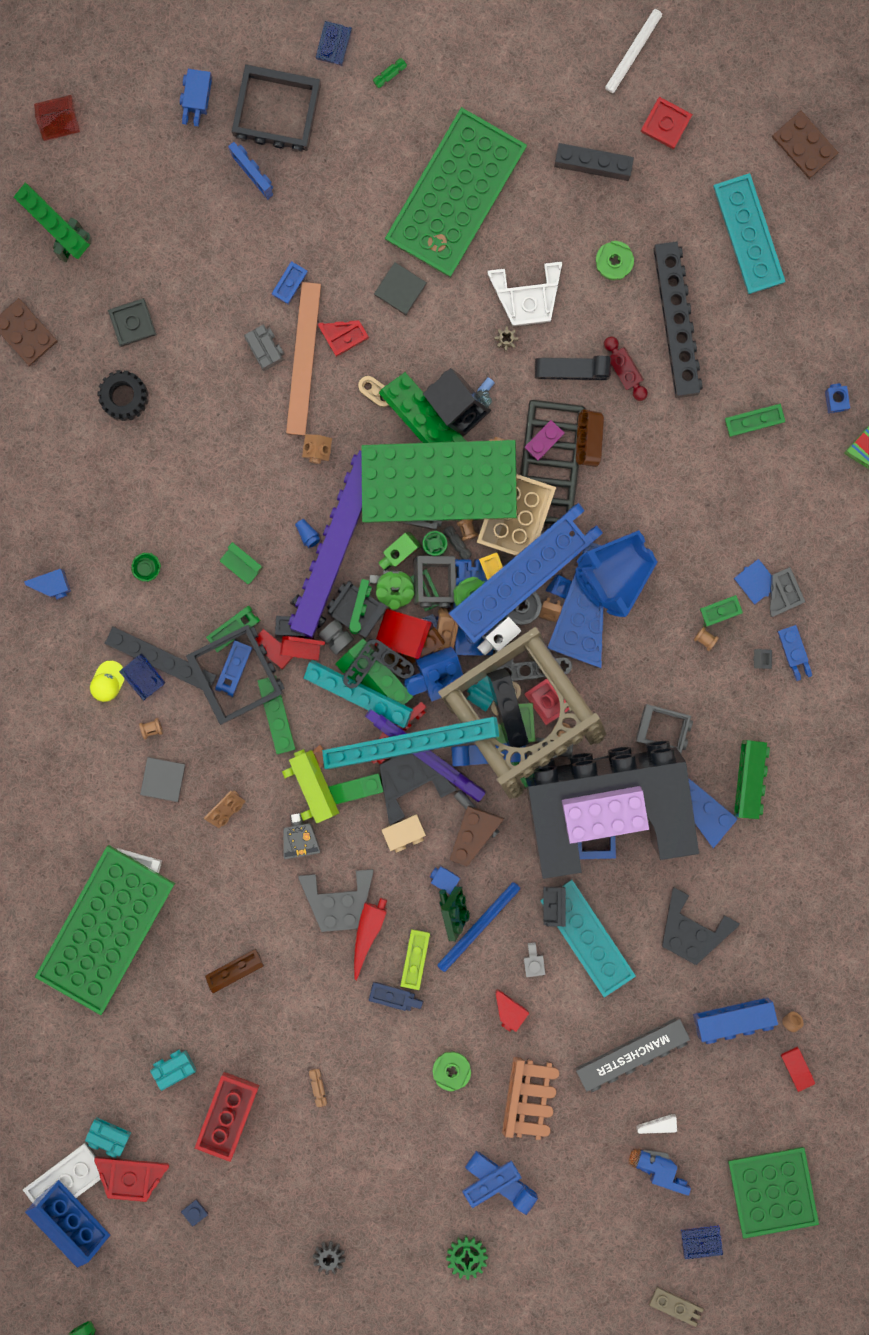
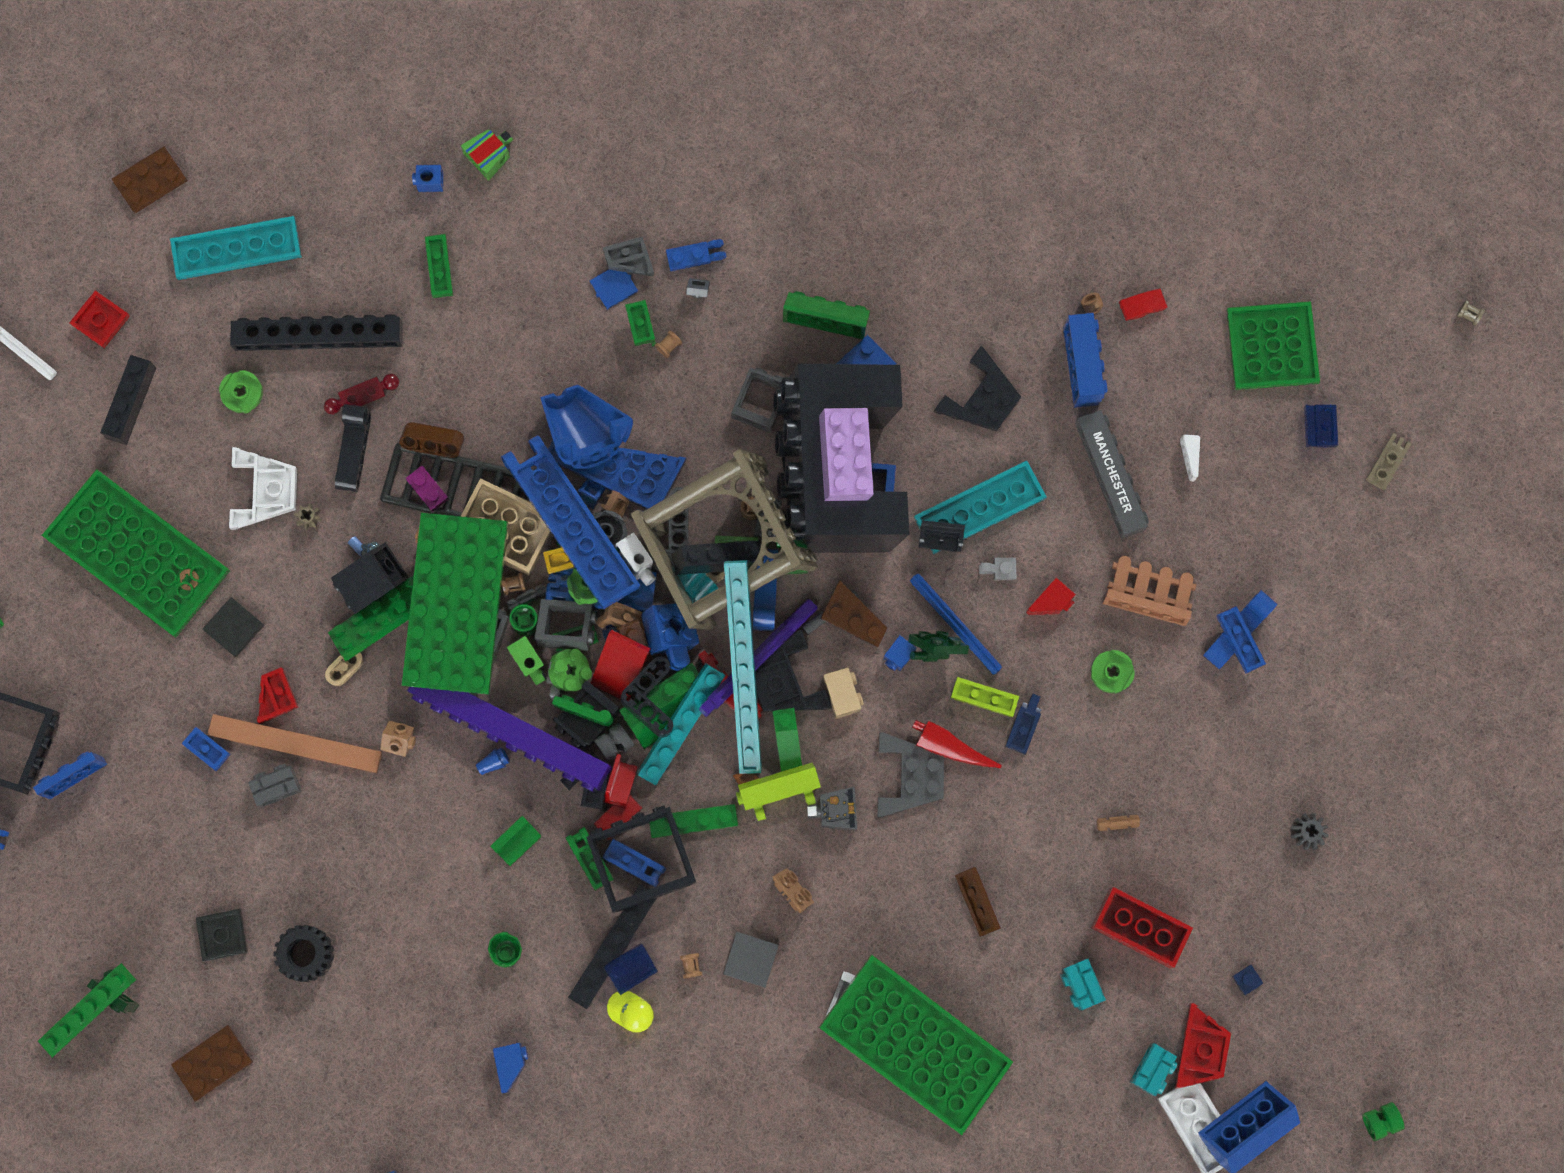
camera: 90 degrees left, 10 degrees down
(459, 1258) = (1319, 688): green gear -> none
(545, 701) = (714, 518): coral slope -> none
(661, 1167) = (1237, 459): blue plate -> none

